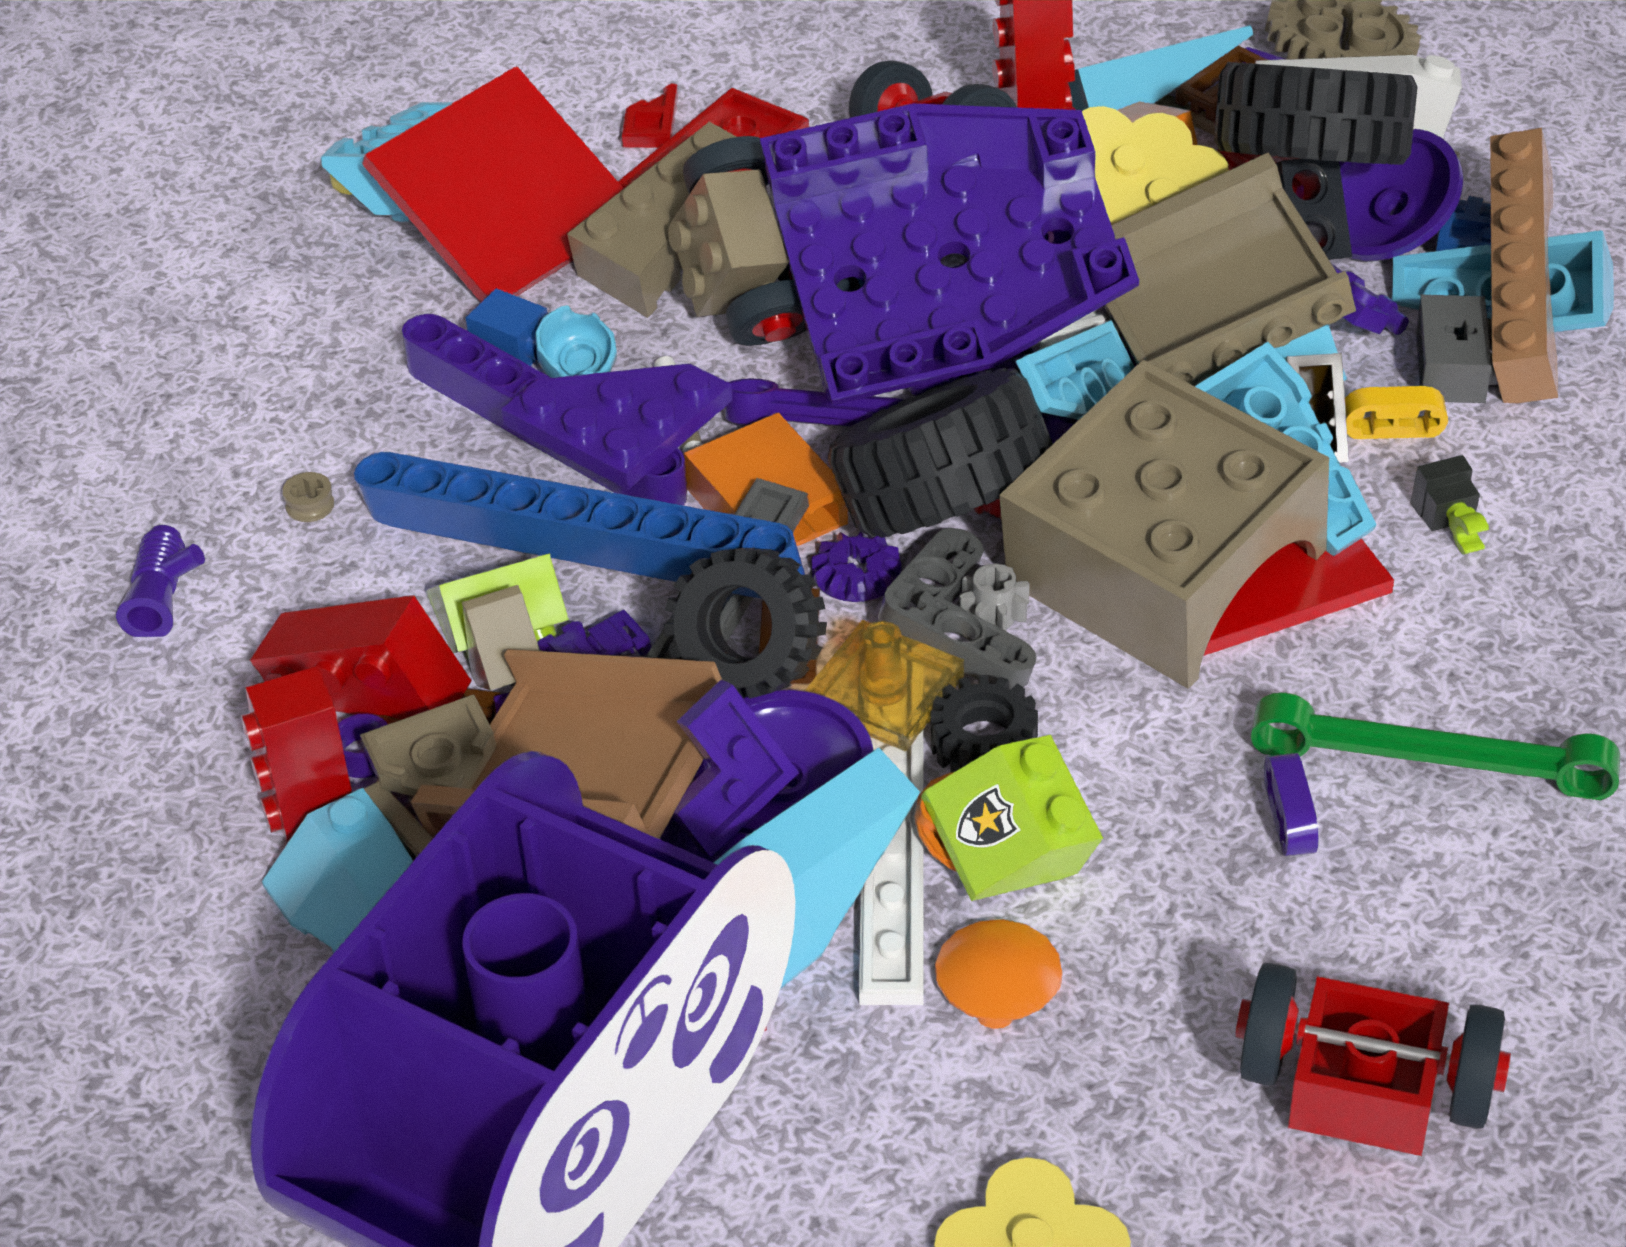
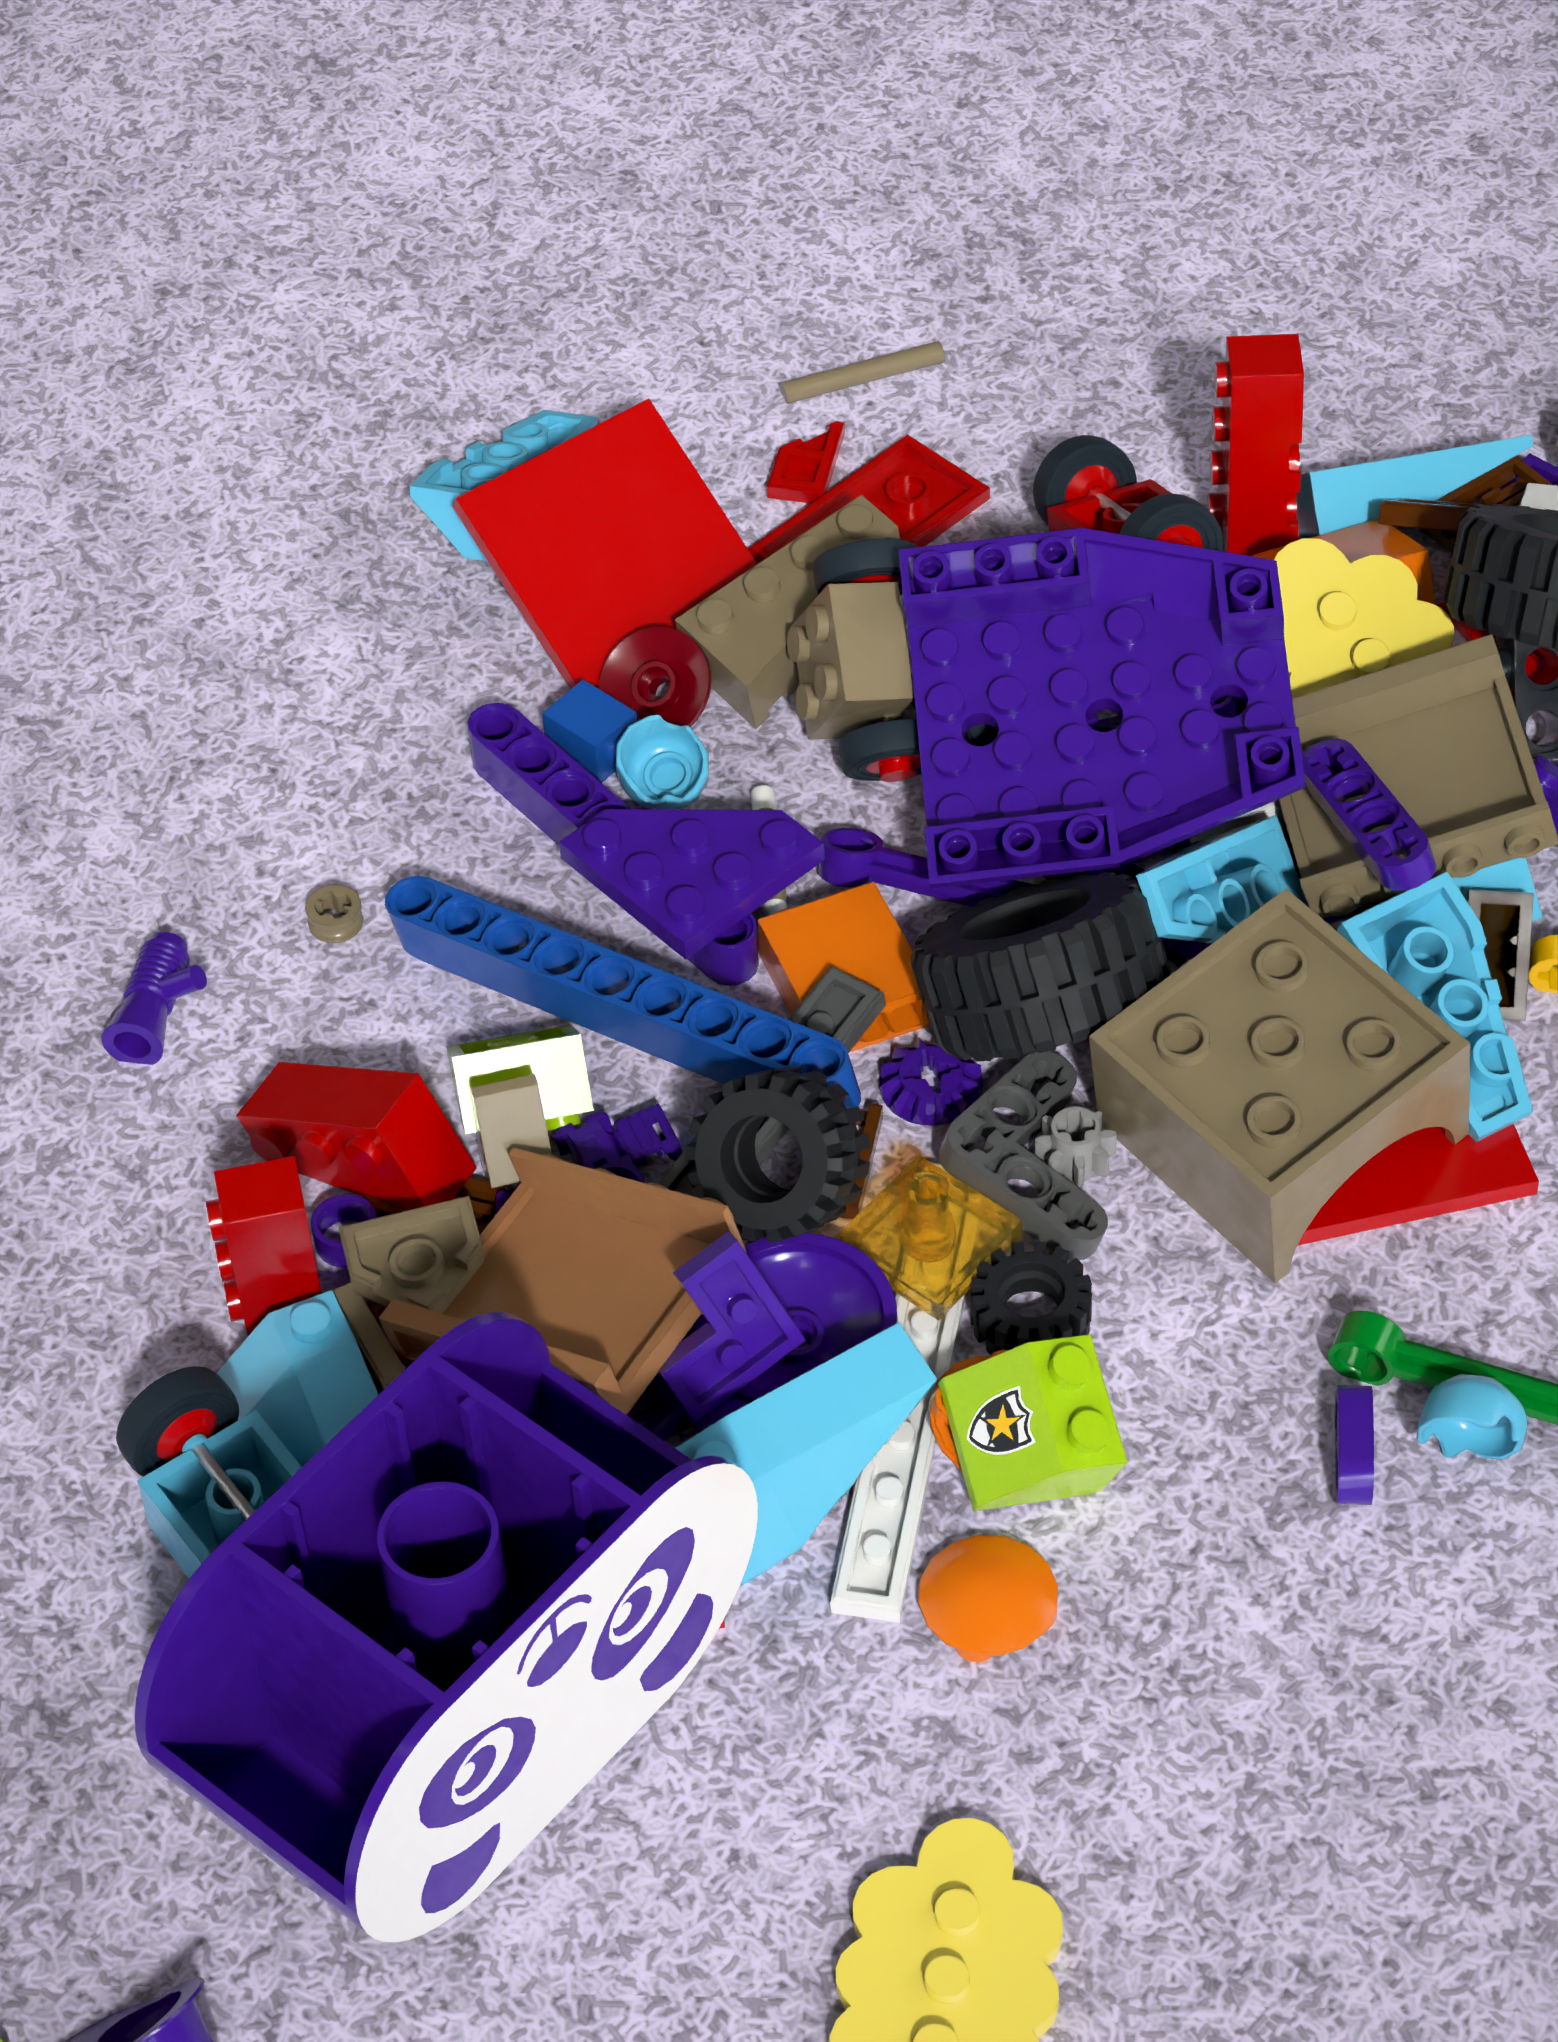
camera: 10 degrees right, 5 degrees up
(260, 944) = (199, 1461): none -> brick
(559, 267) = (657, 657): none -> dark red dish
(683, 48) = (862, 372): none -> dark tan bar
(1180, 89) = (1422, 513): none -> reddish brown tile
(1196, 305) = (1368, 812): none -> dark purple beam
(1370, 1058) = (1363, 1763): red brick -> none
(1391, 767) = (1473, 1416): none -> medium azure hair

